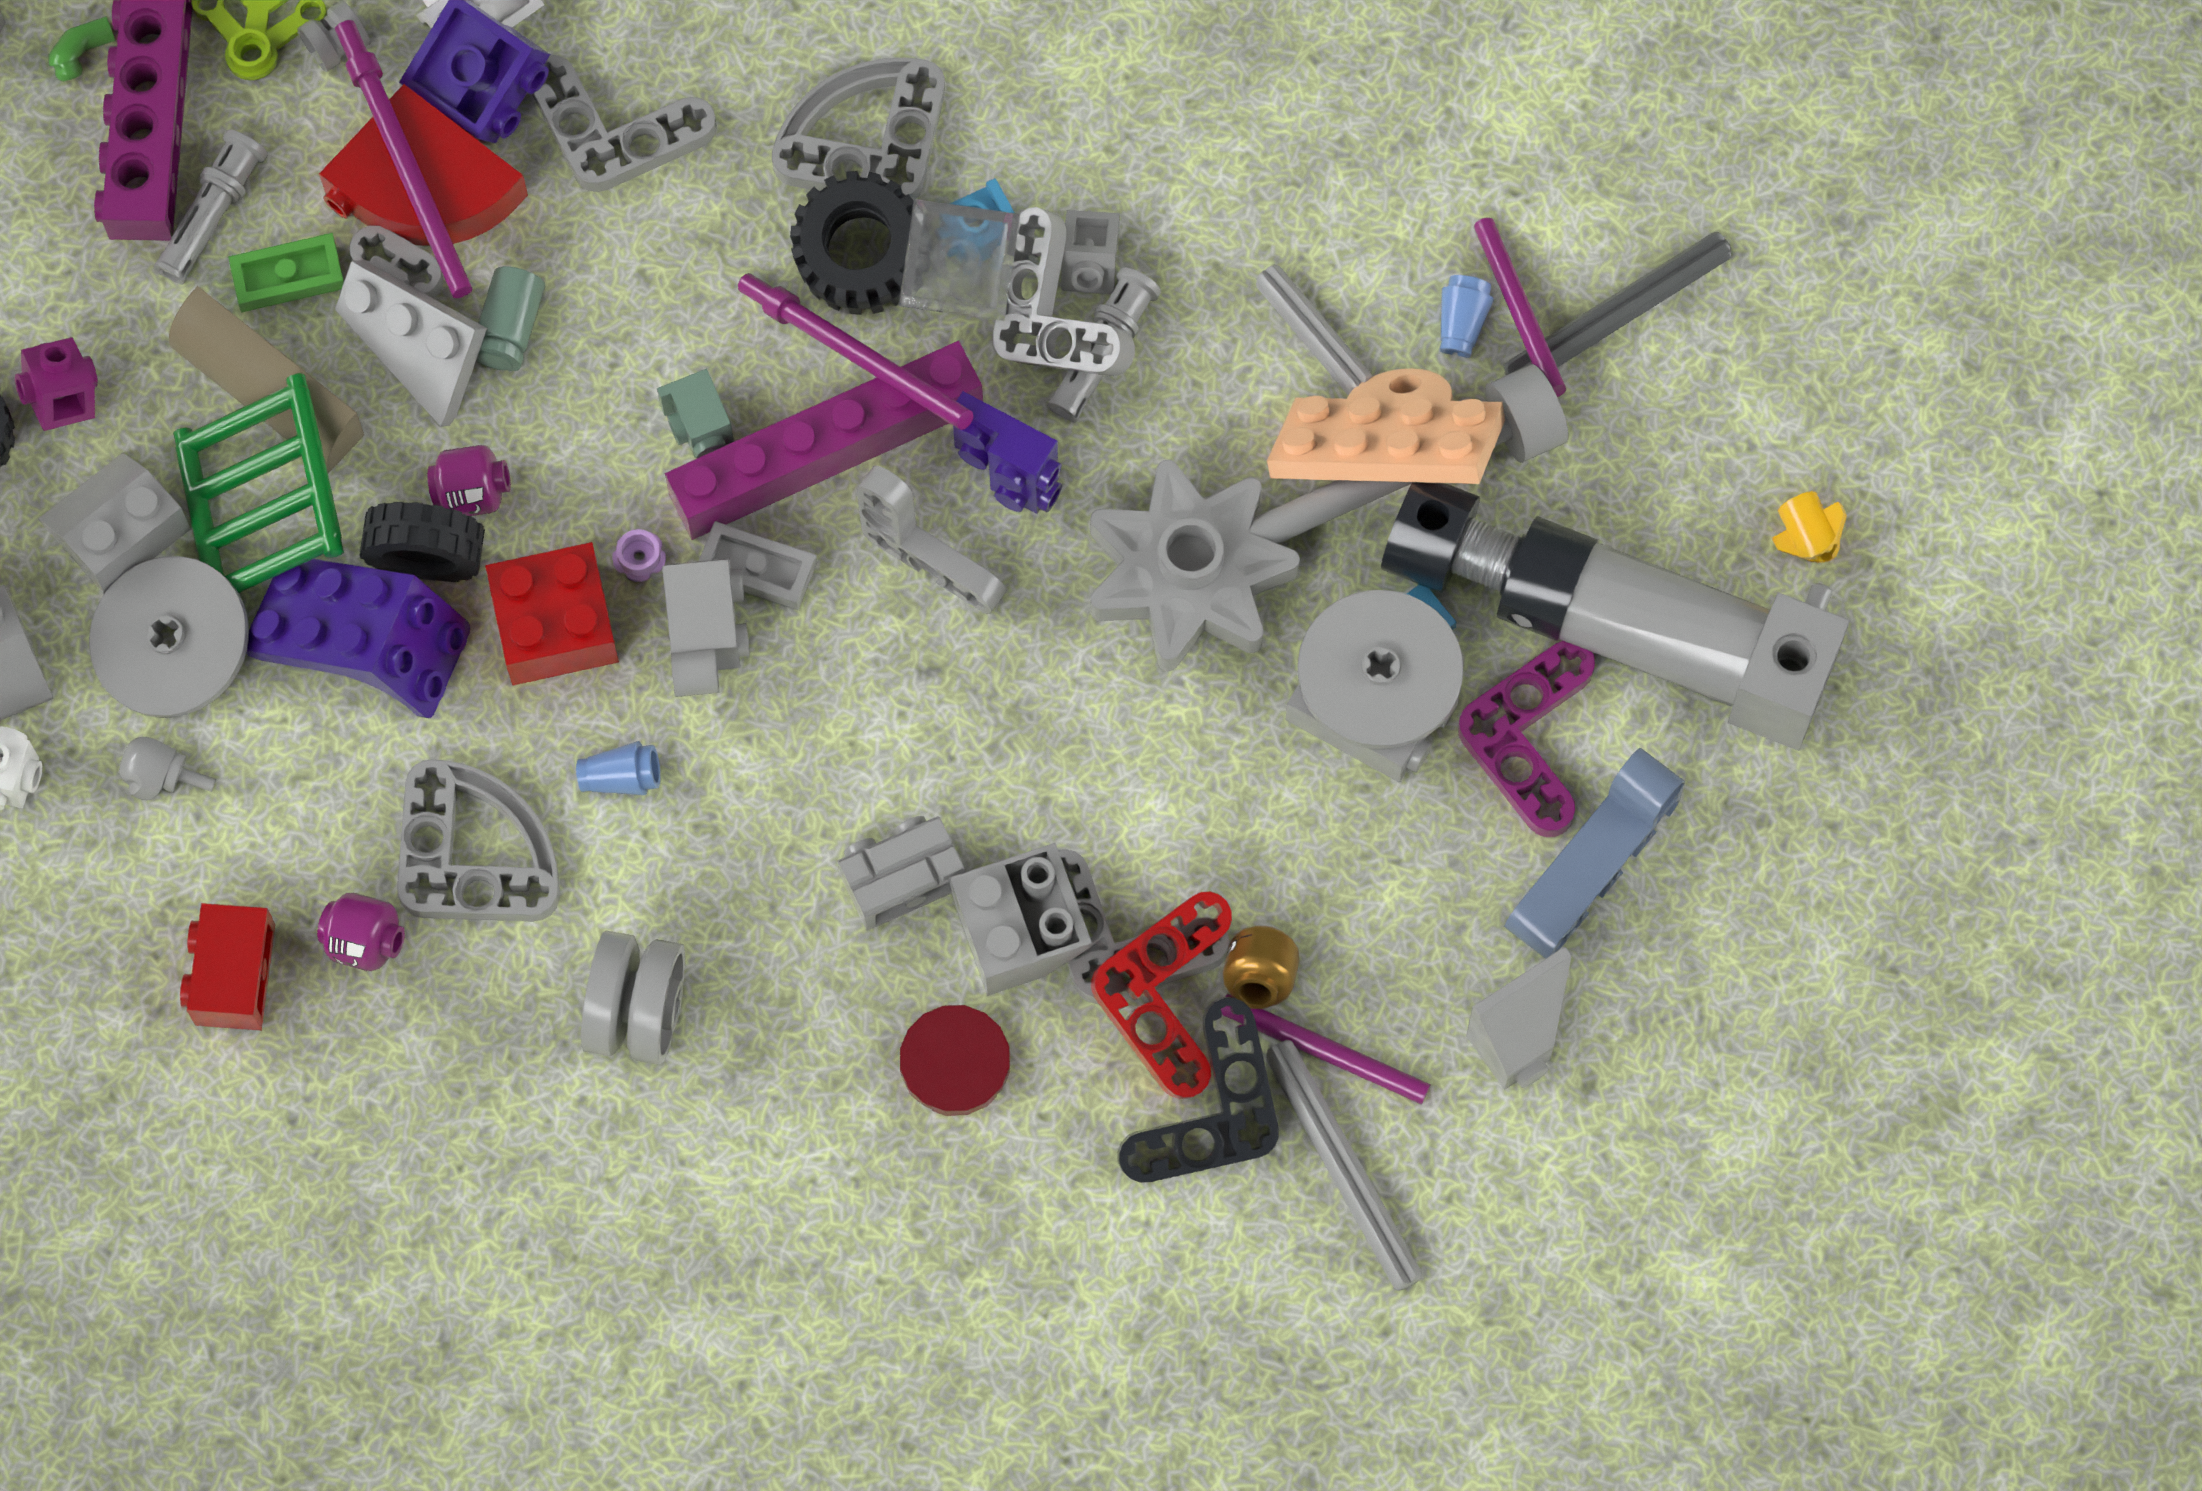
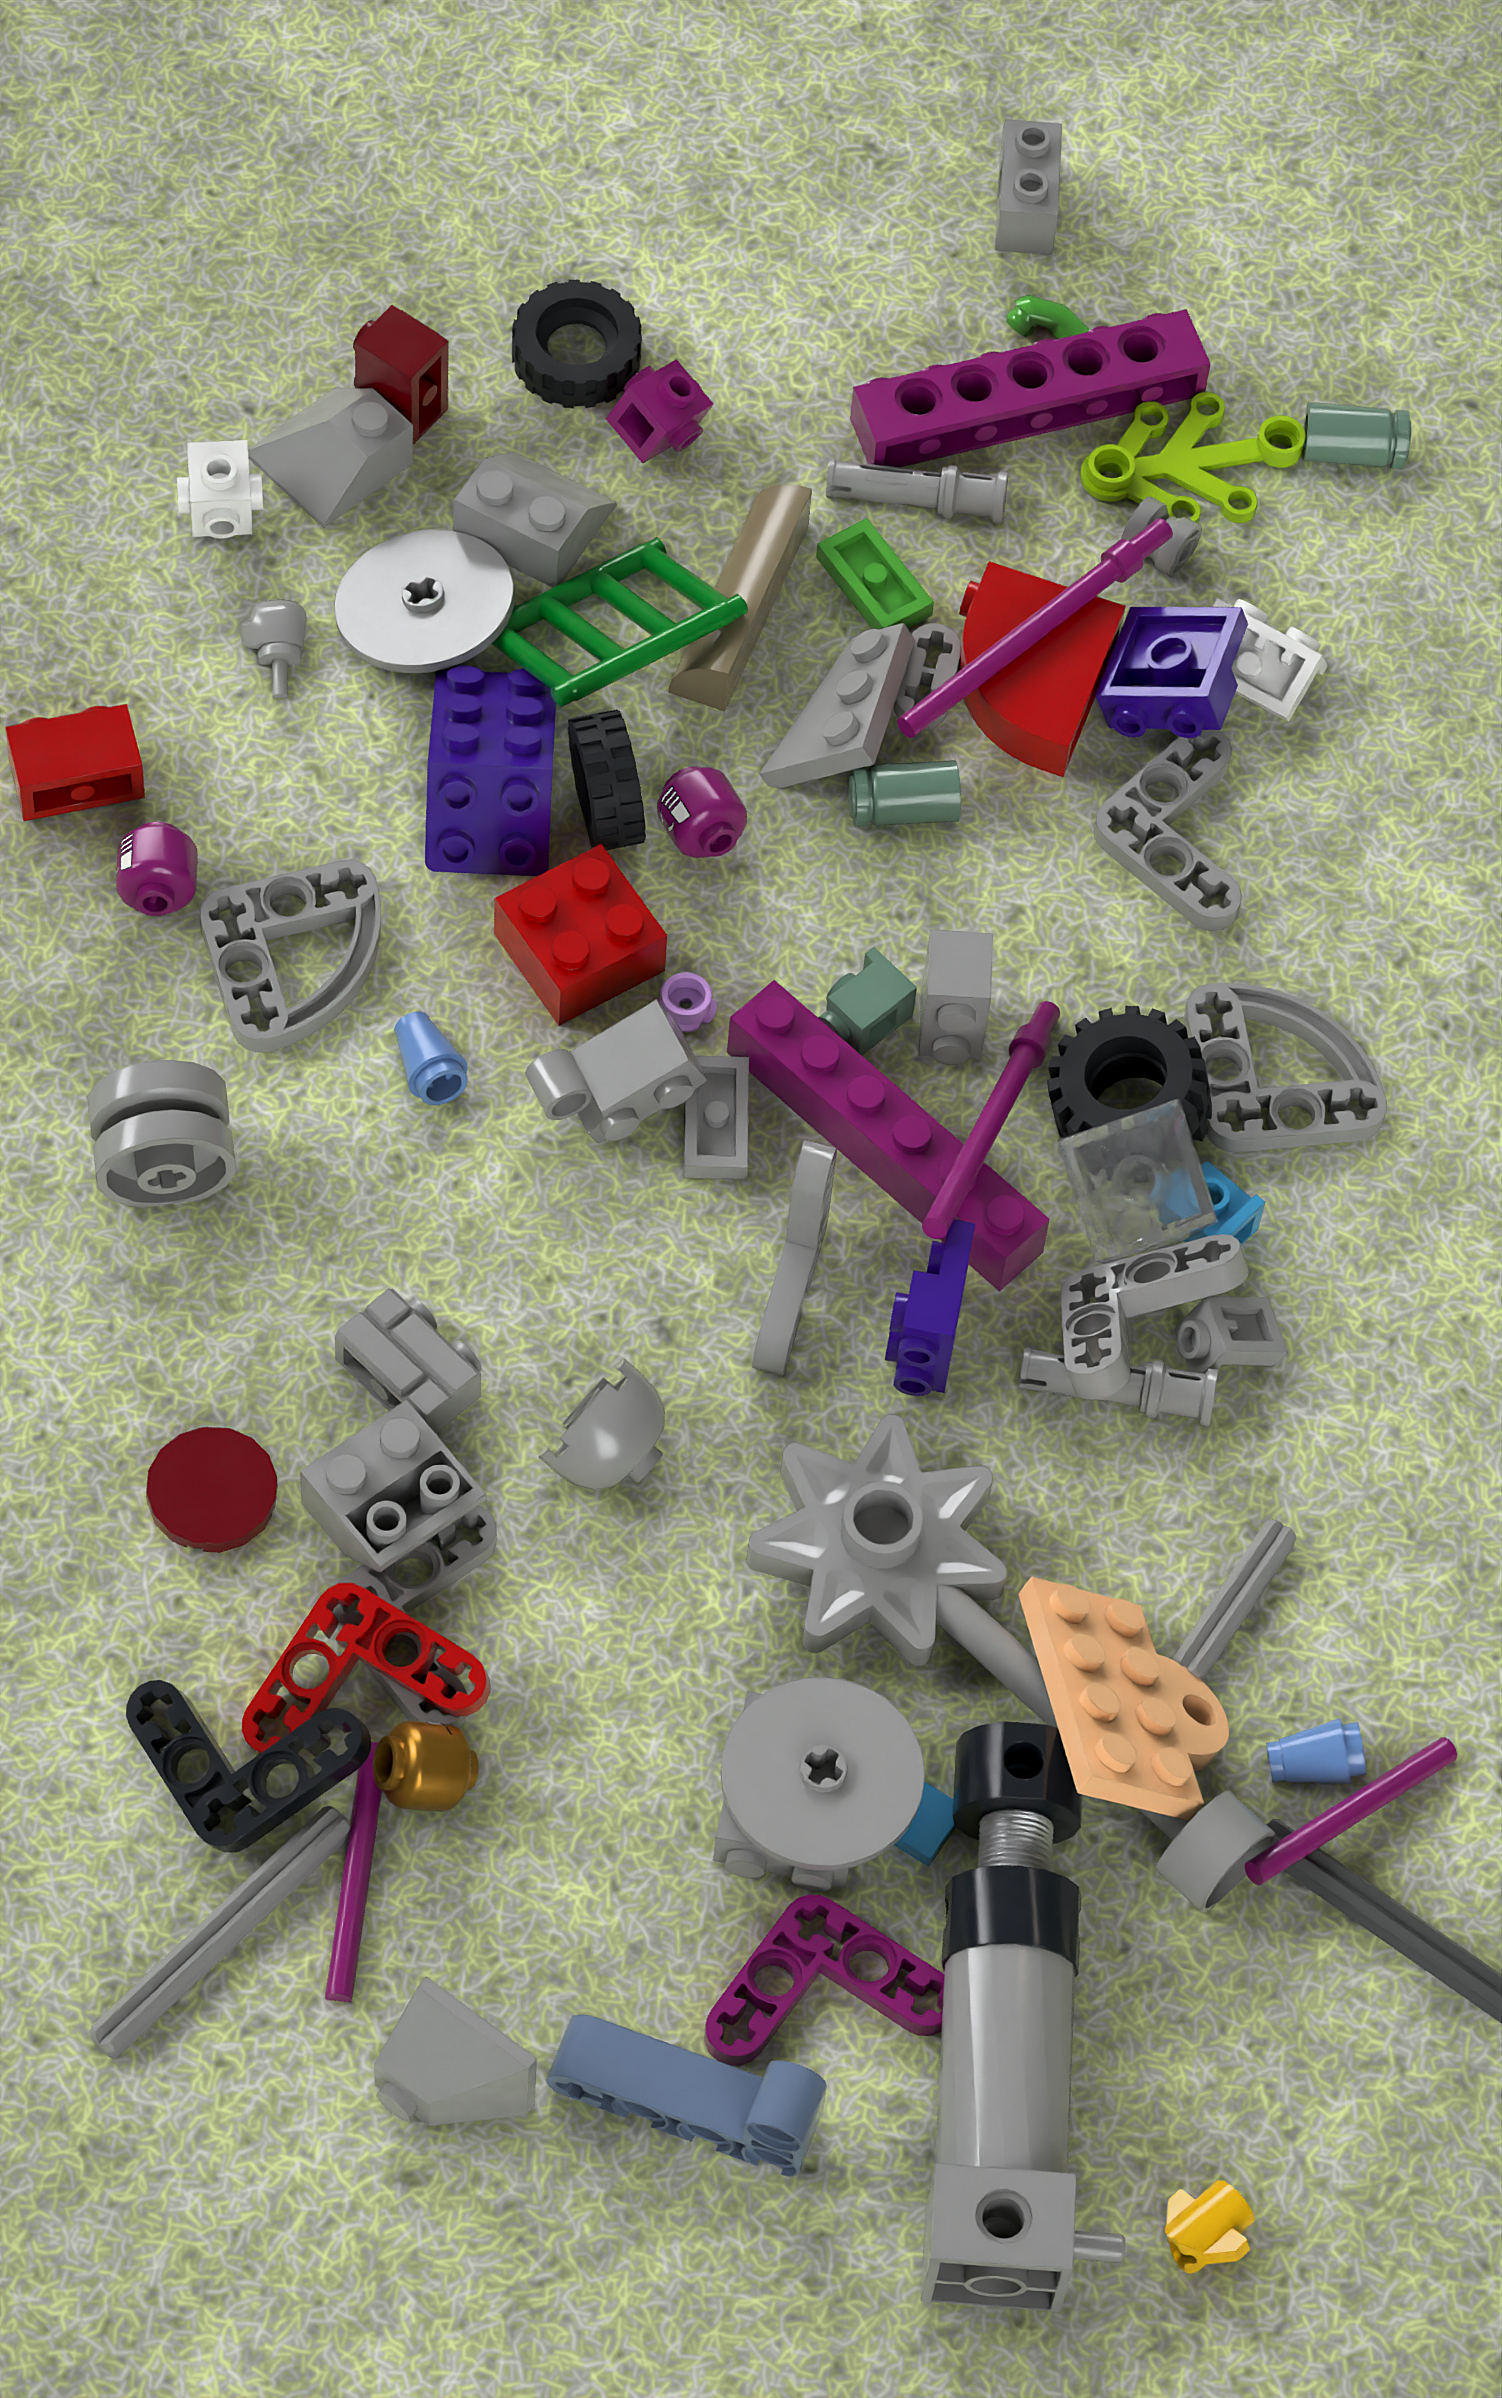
camera: 65 degrees right, 10 degrees down
(728, 341) = (955, 995): none -> light grey brick
(1015, 727) = (611, 1433): none -> light grey cylinder

